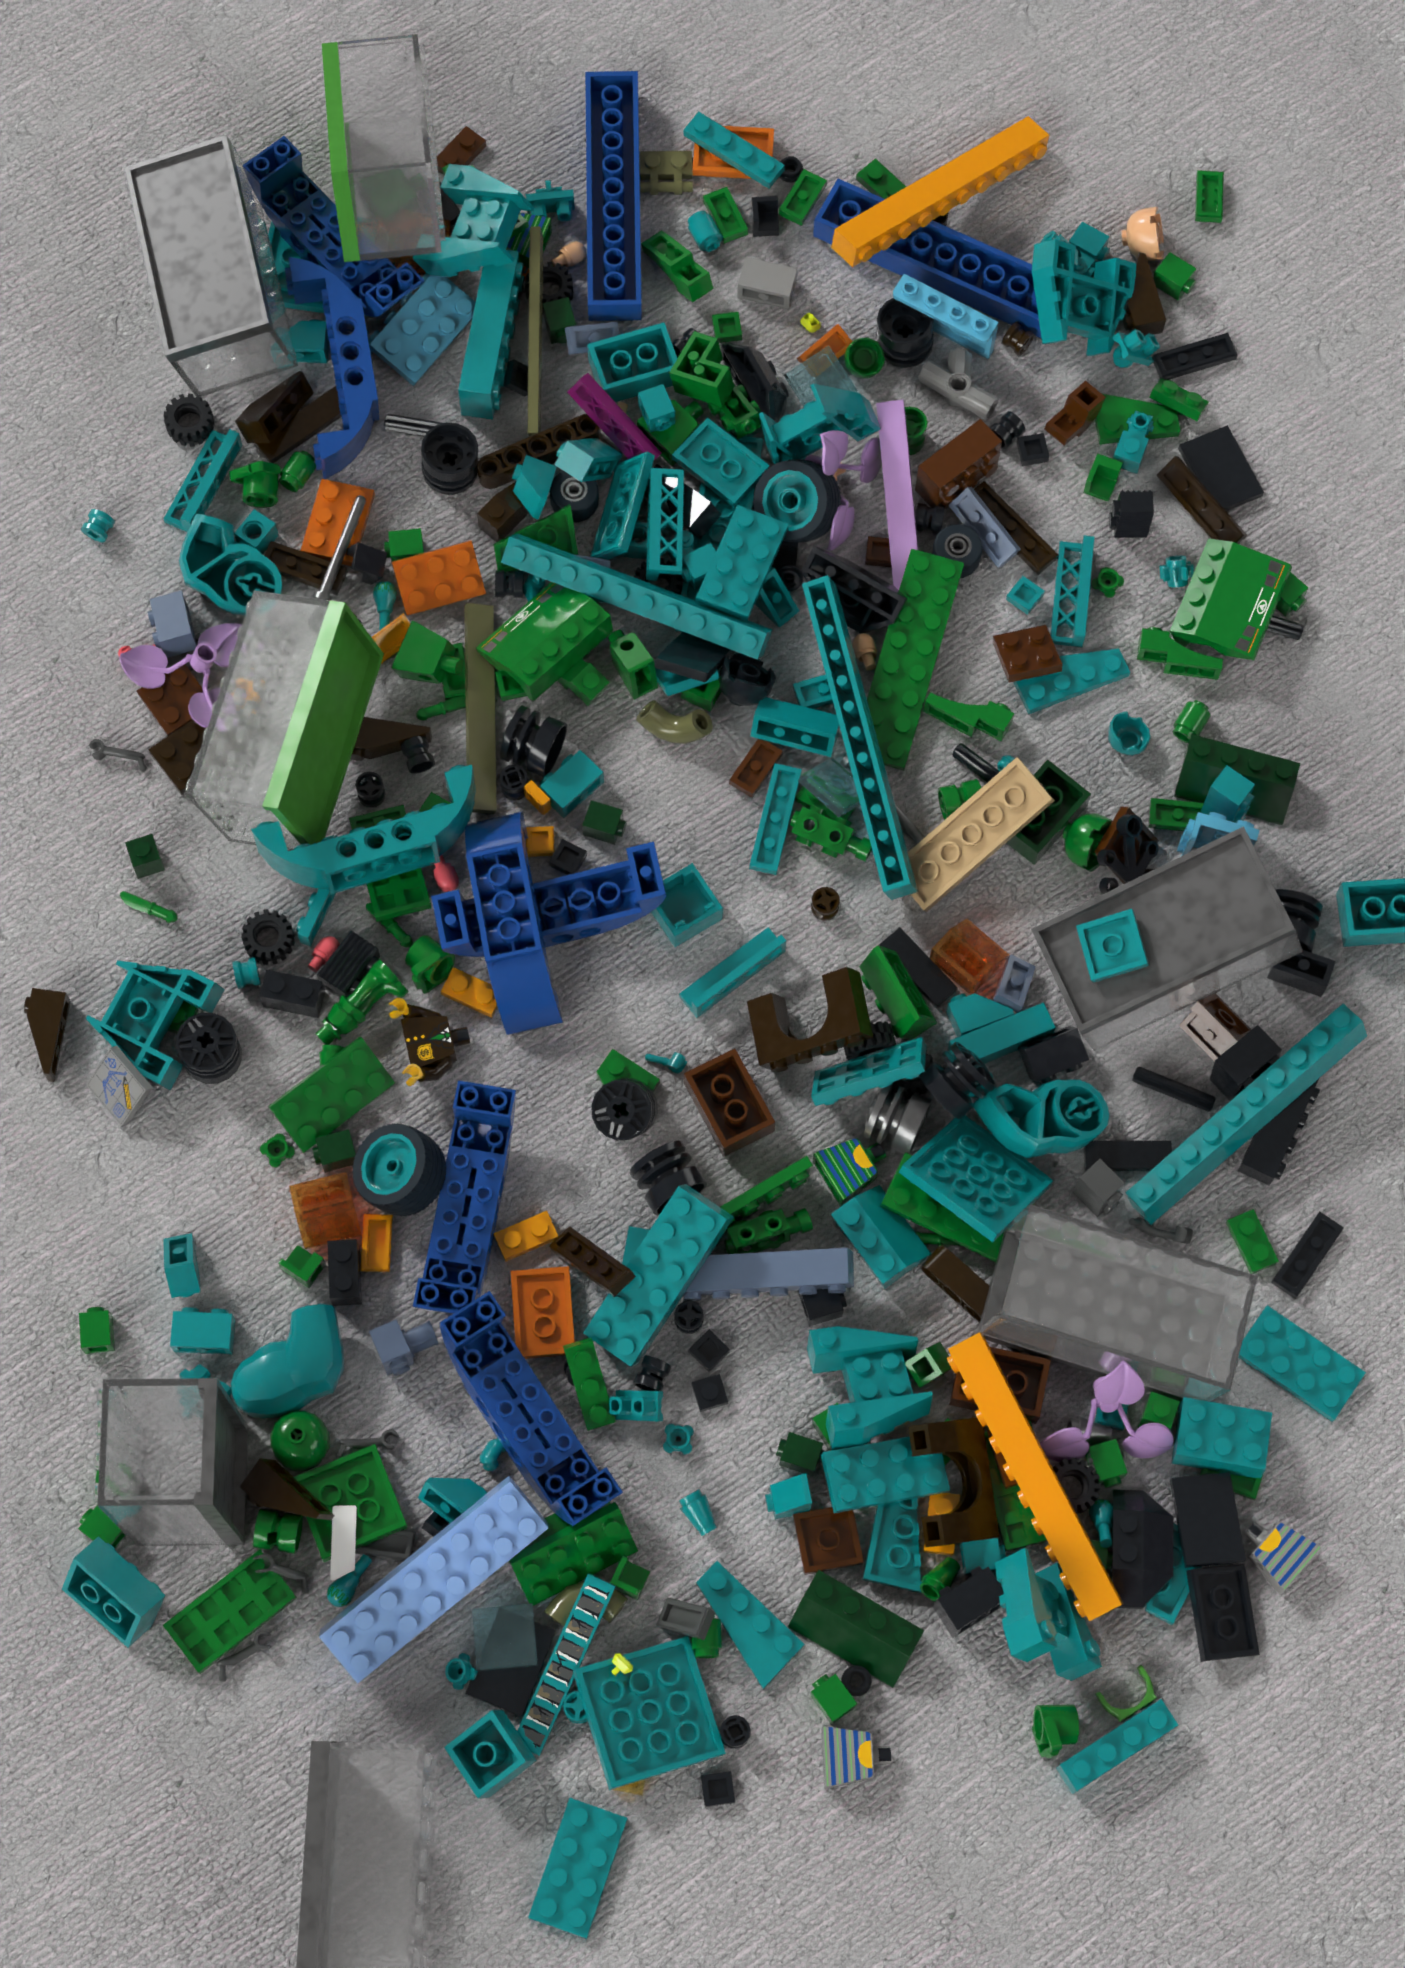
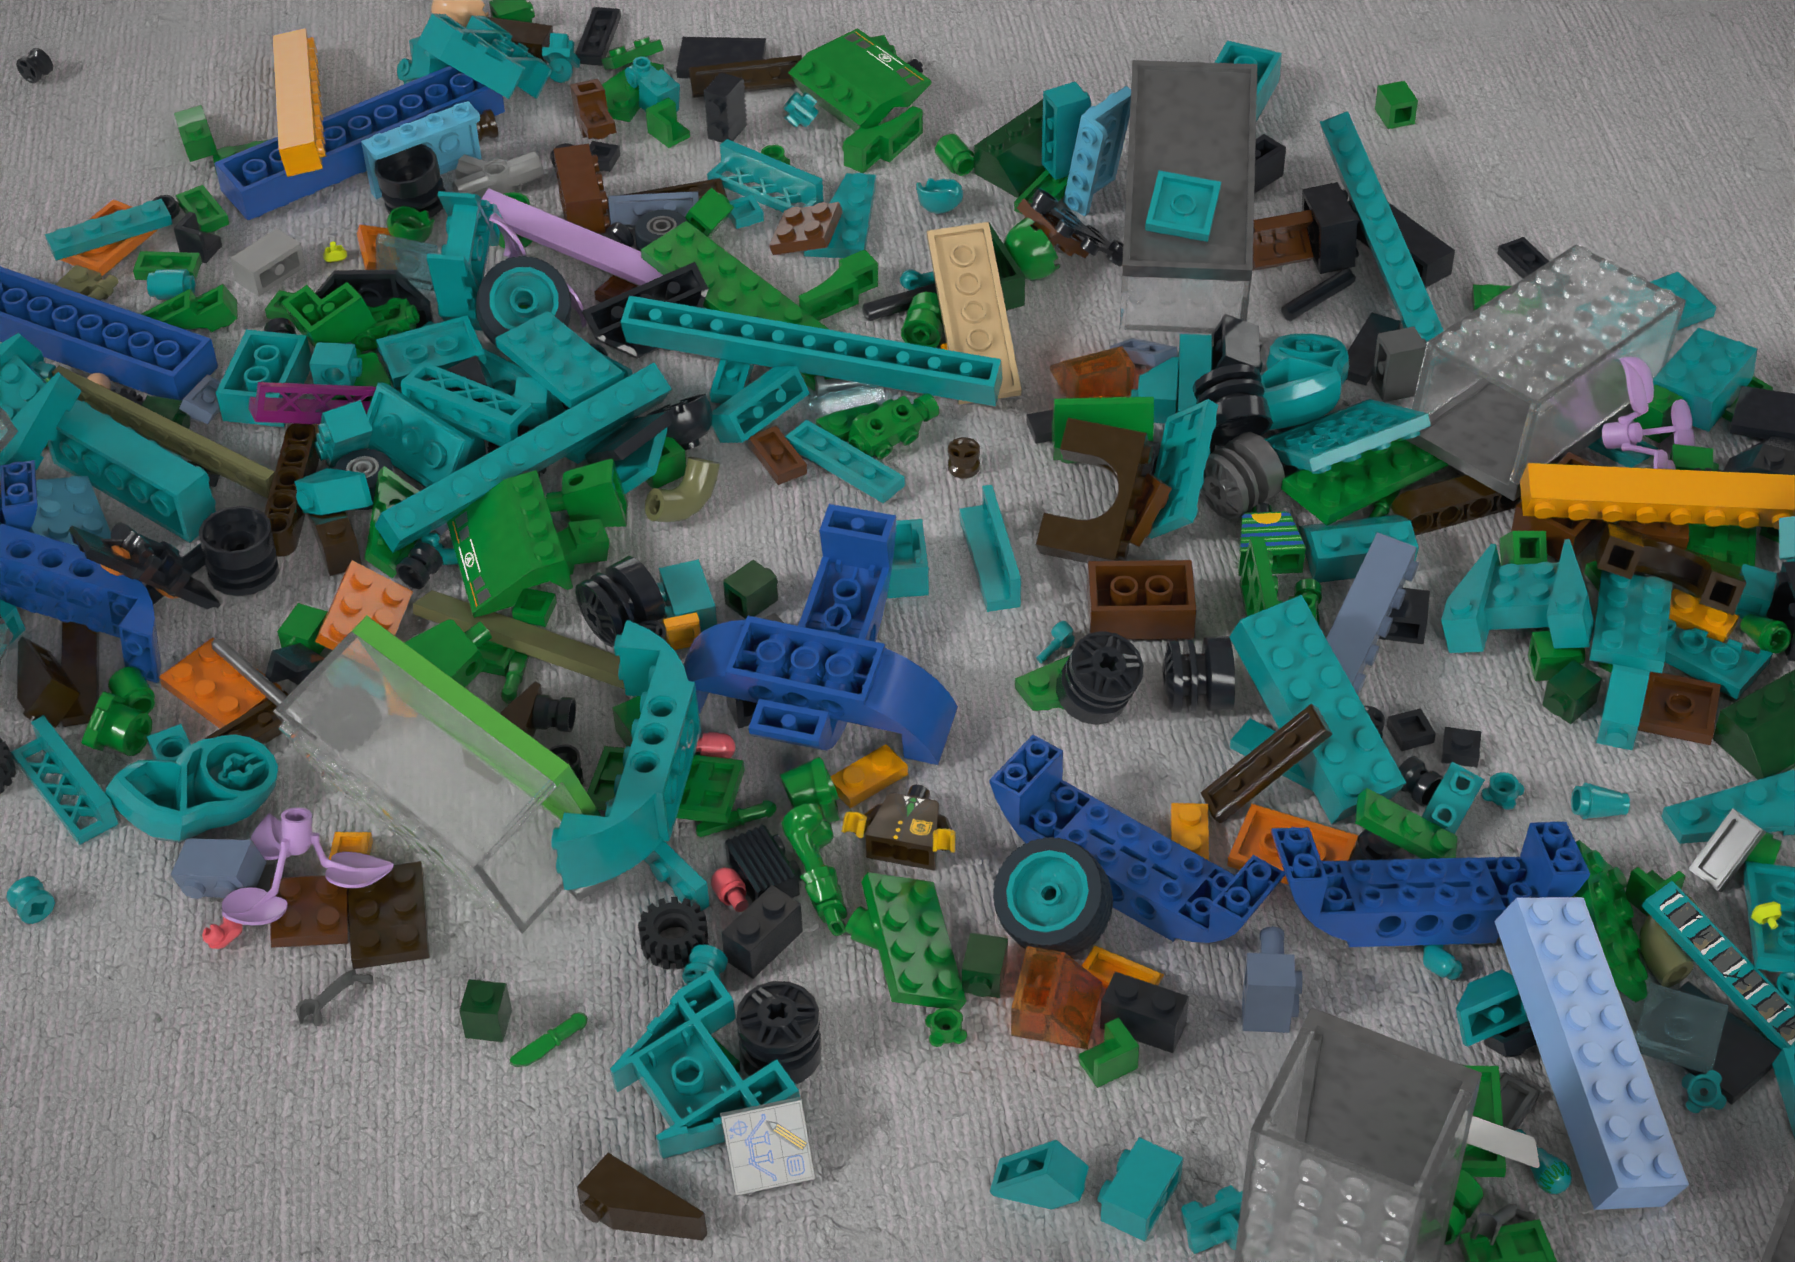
camera: 60 degrees left, 25 degrees down
(294, 1370) = (1232, 1081): teal piece -> none
(369, 407) = (132, 556): none -> black piece
(823, 1065) = (1148, 506): none -> reddish brown plate
(886, 134) = (195, 133): none -> green slope
(997, 572) = (709, 212): none -> green brick

